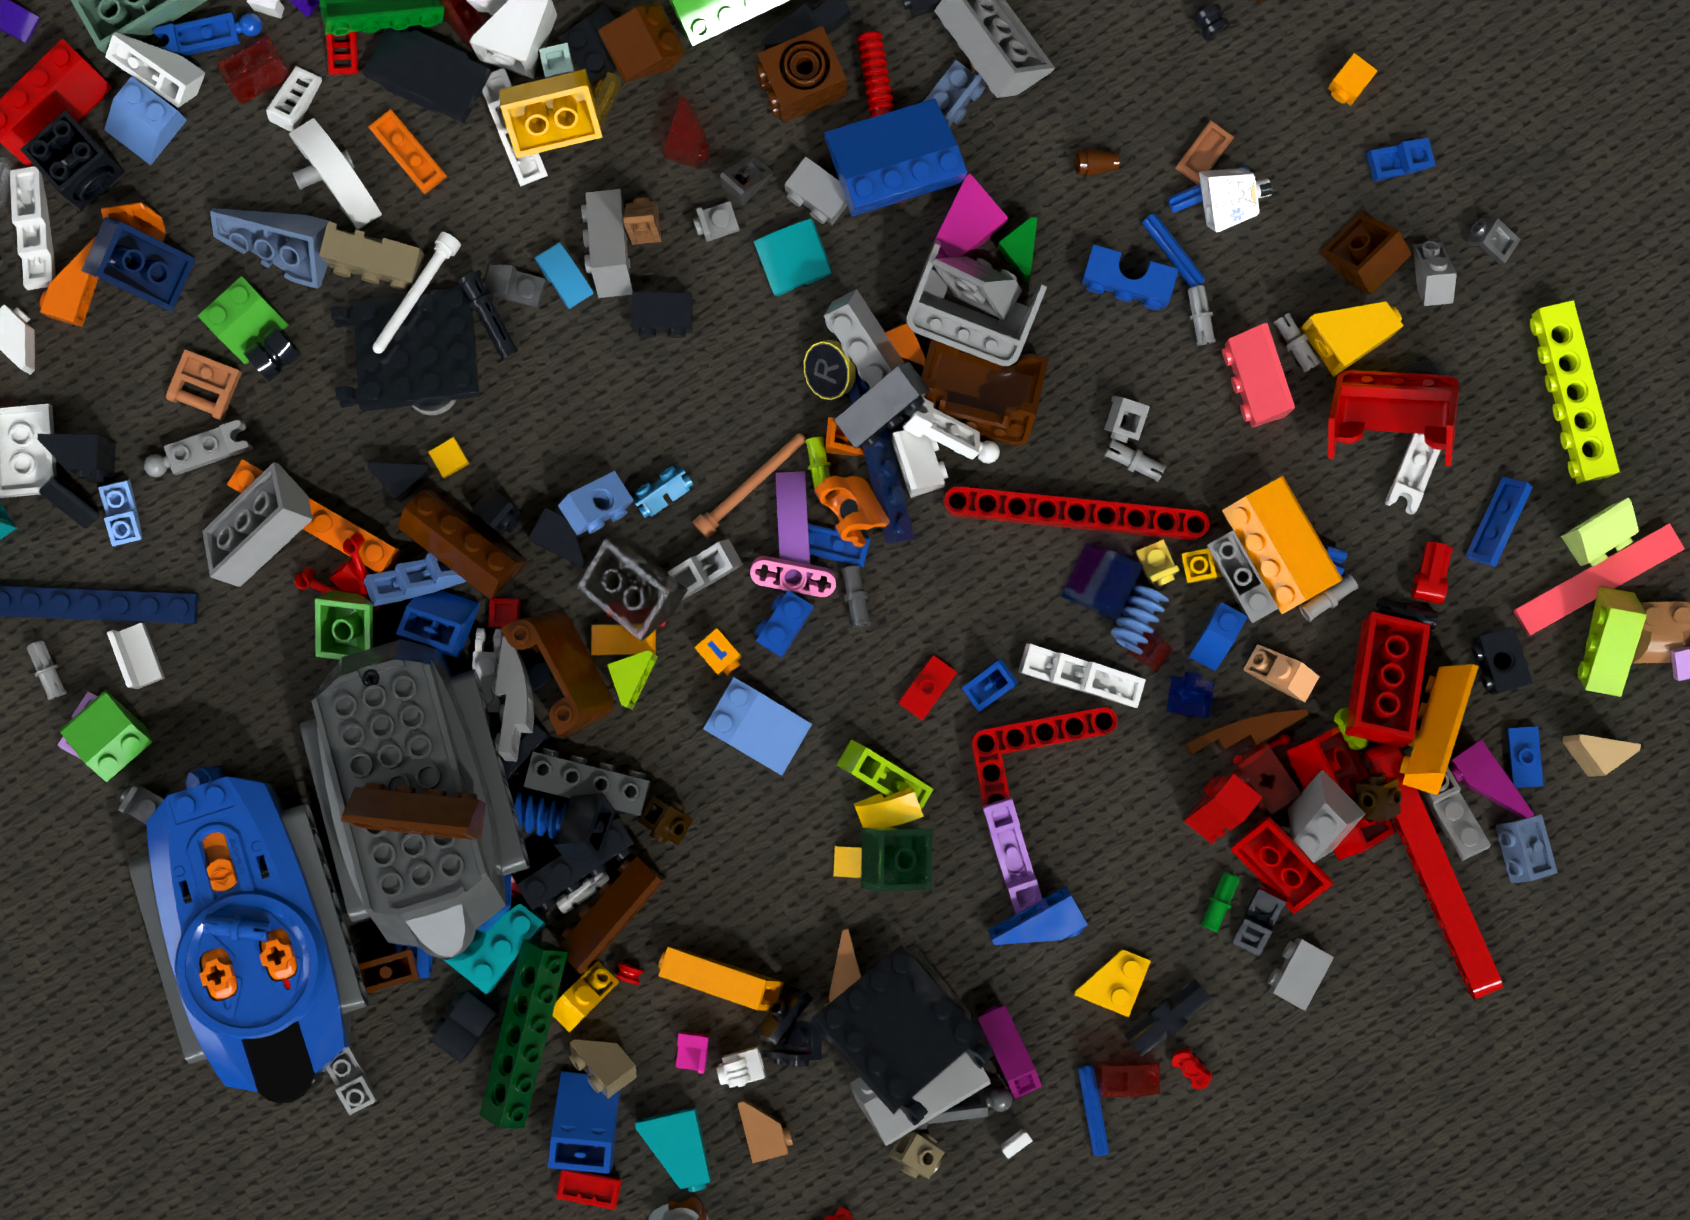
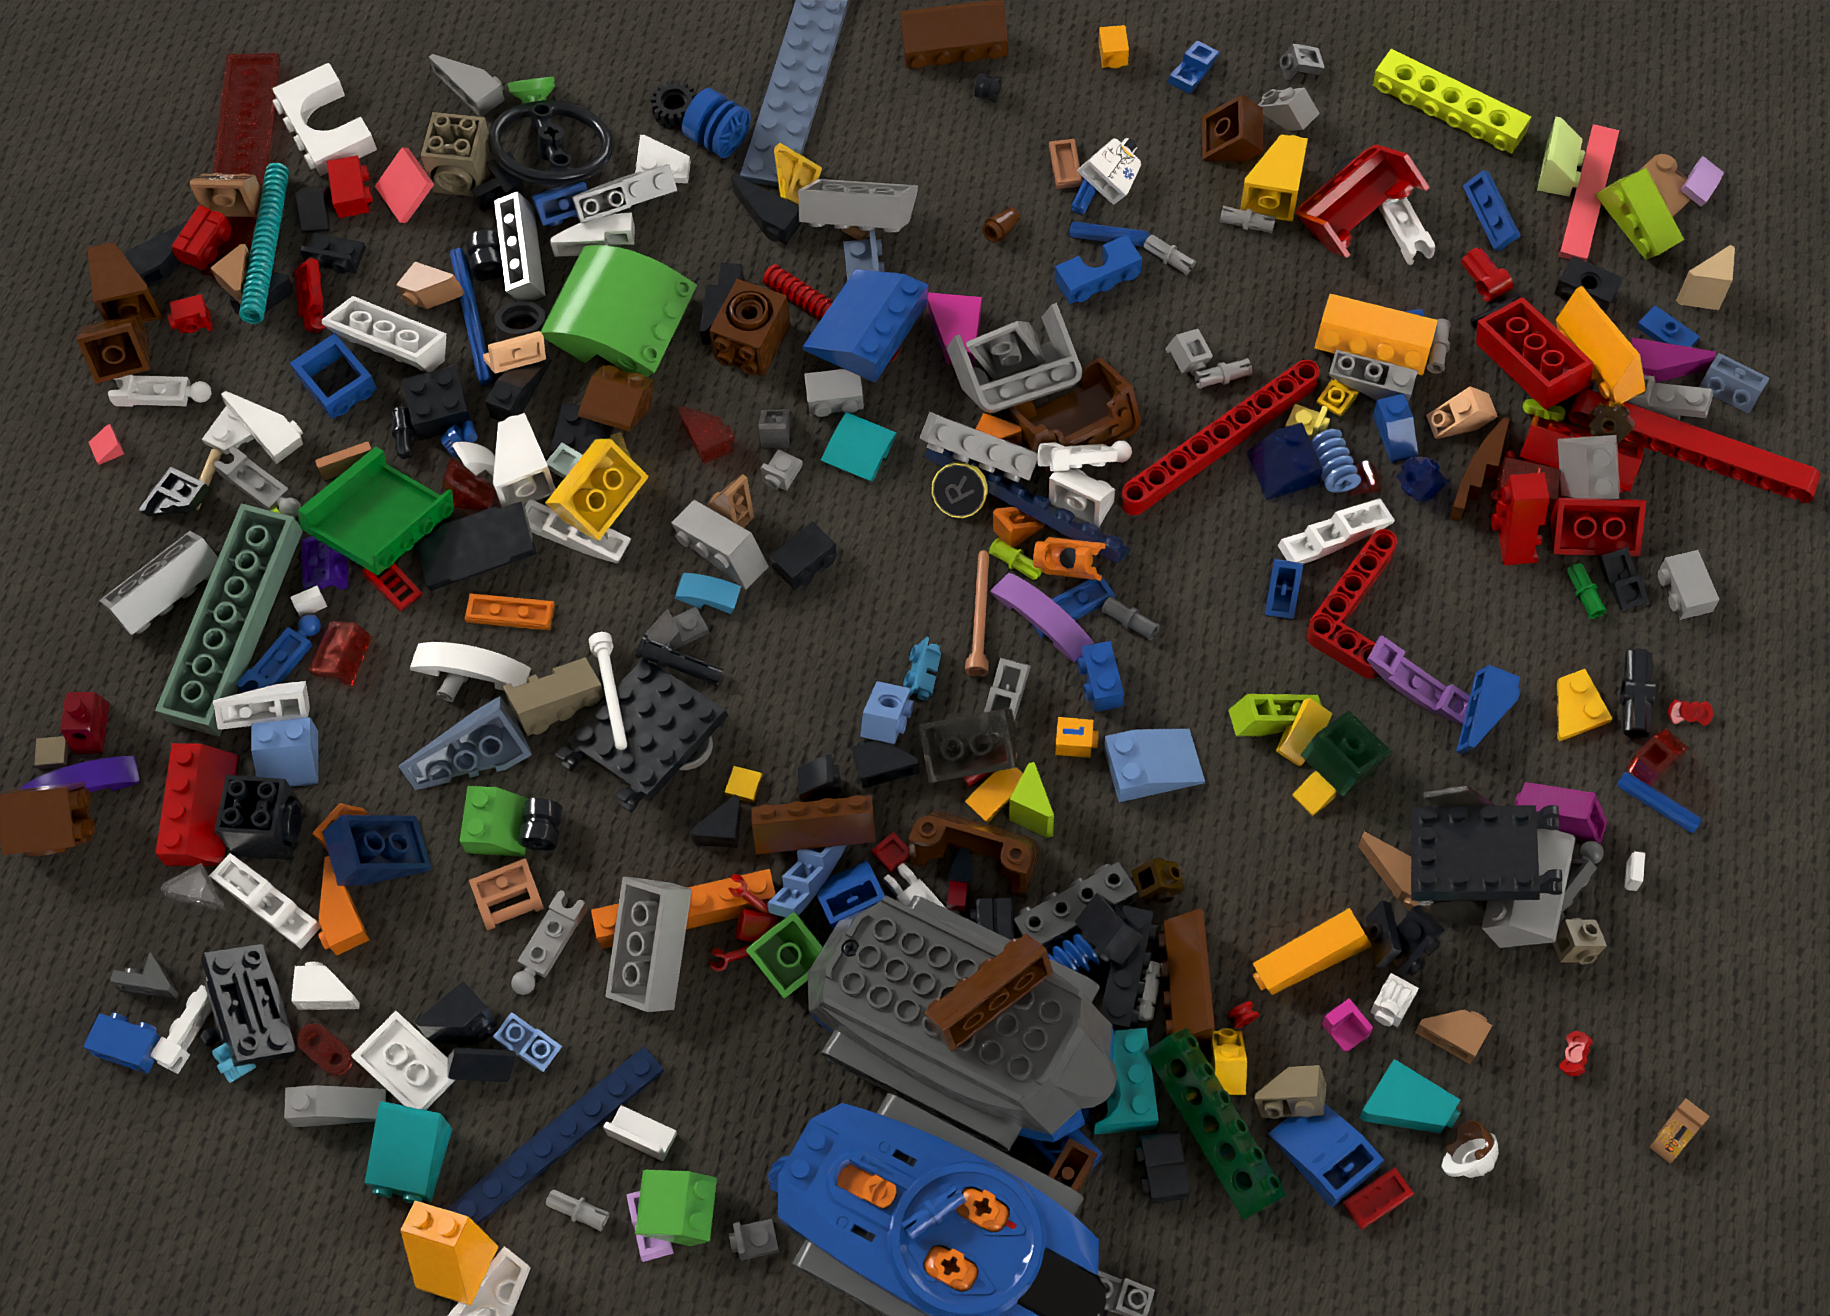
camera: 45 degrees left, 20 degrees down
(296, 114) = (395, 663): white slope -> none
(515, 690) = (962, 887): light grey slope -> none
(812, 589) = (1063, 636): bright pink beam -> none
(883, 406) = (1026, 466): brick -> none
(927, 687) = (1242, 633): red plate -> none
(1019, 248) = (1007, 309): green slope -> none
(1258, 376) = (1248, 251): coral slope -> none

